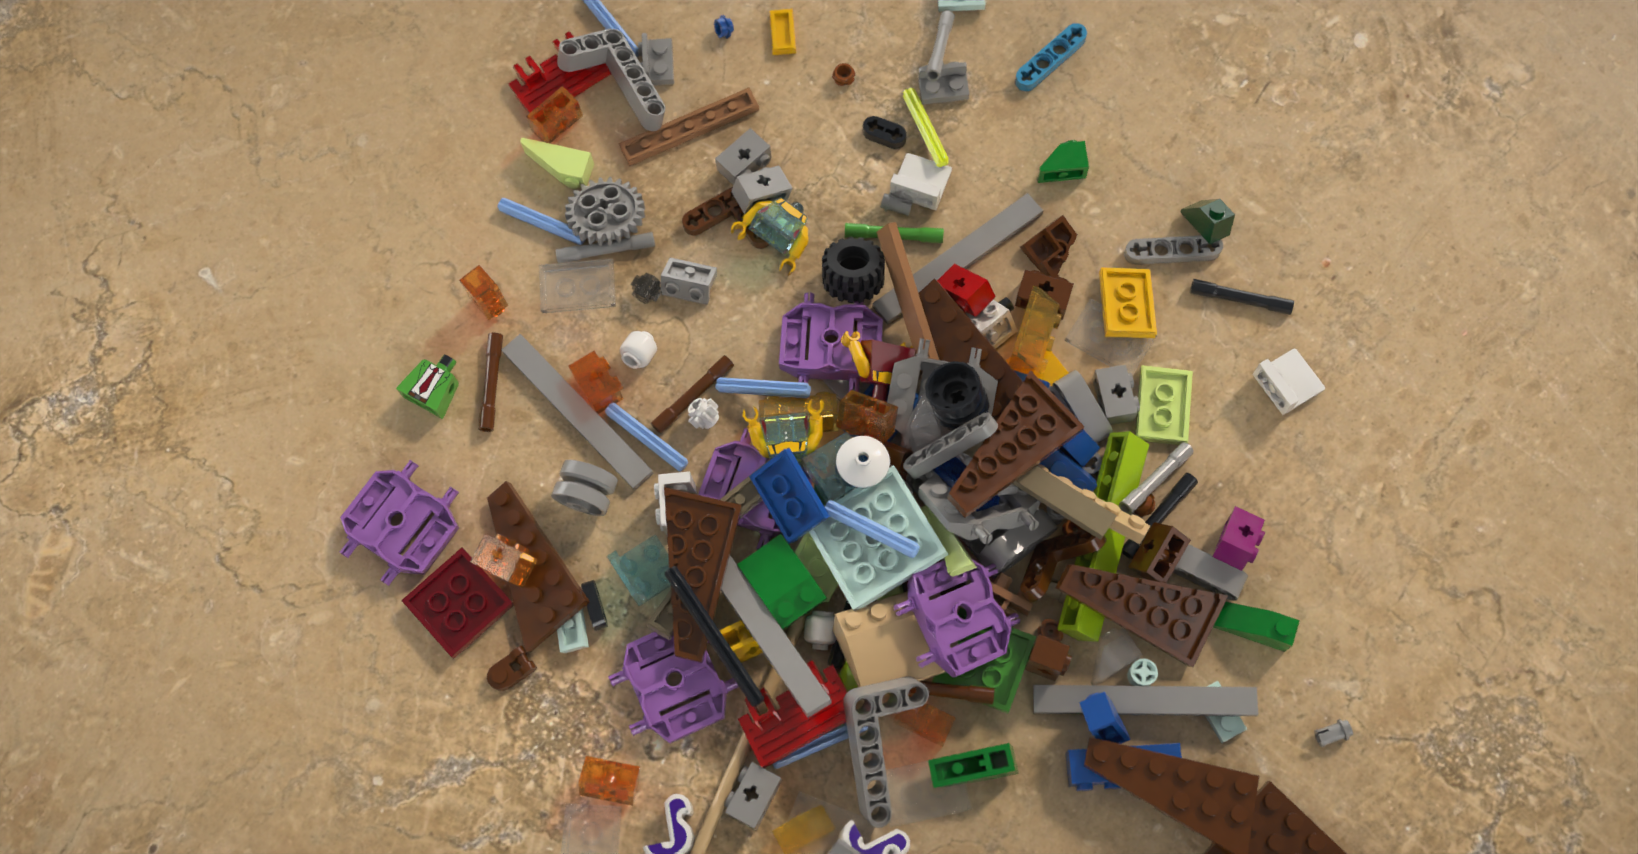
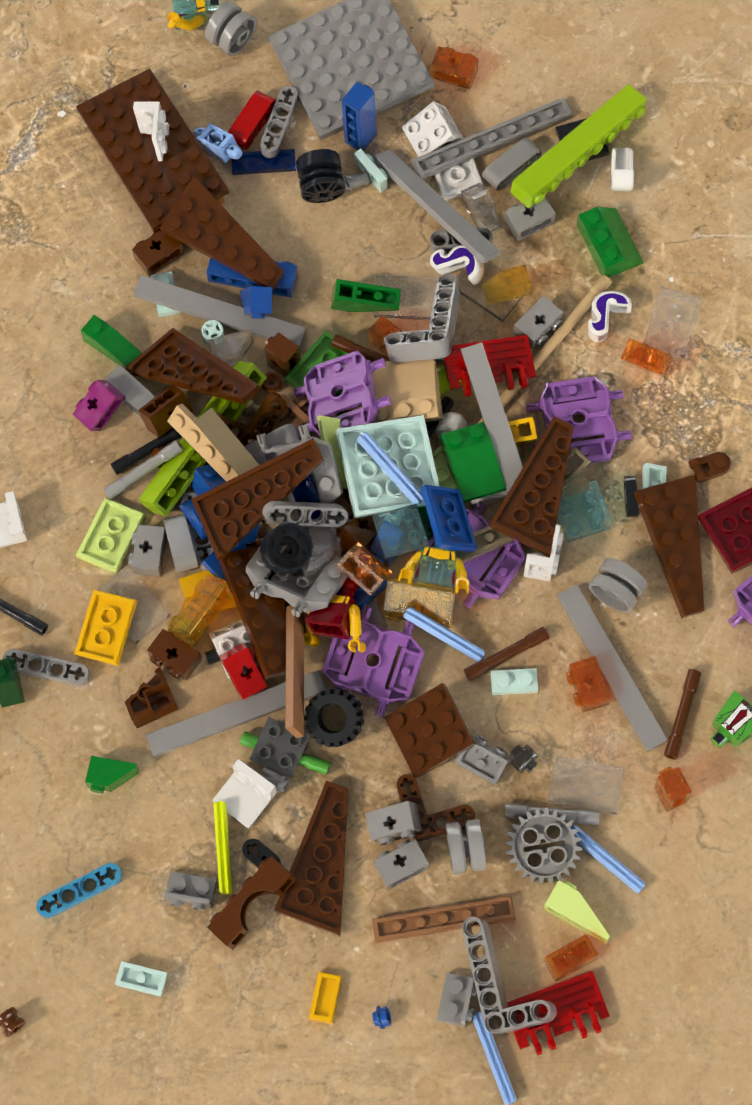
camera: 165 degrees left, 0 degrees up
(504, 560) = (698, 542): clear orange brick -> none
(638, 349) = (544, 703): white head -> none
(646, 436) = (555, 626): light blue axle -> none
(677, 368) = (514, 681): none -> light aqua plate
(678, 183) = (467, 846): none -> light grey wheel
(703, 413) = (501, 629): white gear -> none
(714, 636) = (539, 429): black axle -> none
(750, 288) = (429, 730): none -> reddish brown plate
(779, 225) = (387, 780): torso -> none
(824, 131) = (319, 865): none -> reddish brown wing
(843, 69) = (274, 929): dark orange plate -> none
(862, 473) = (382, 534): white dish -> none
(866, 100) = (231, 922): none -> reddish brown arch
(910, 226) = (279, 748): none -> dark grey hinge
(936, 61) = (192, 898): light grey piece -> none
(1260, 748) = (152, 260): none -> reddish brown brick
(1334, 733) = (88, 256): light grey pin -> none

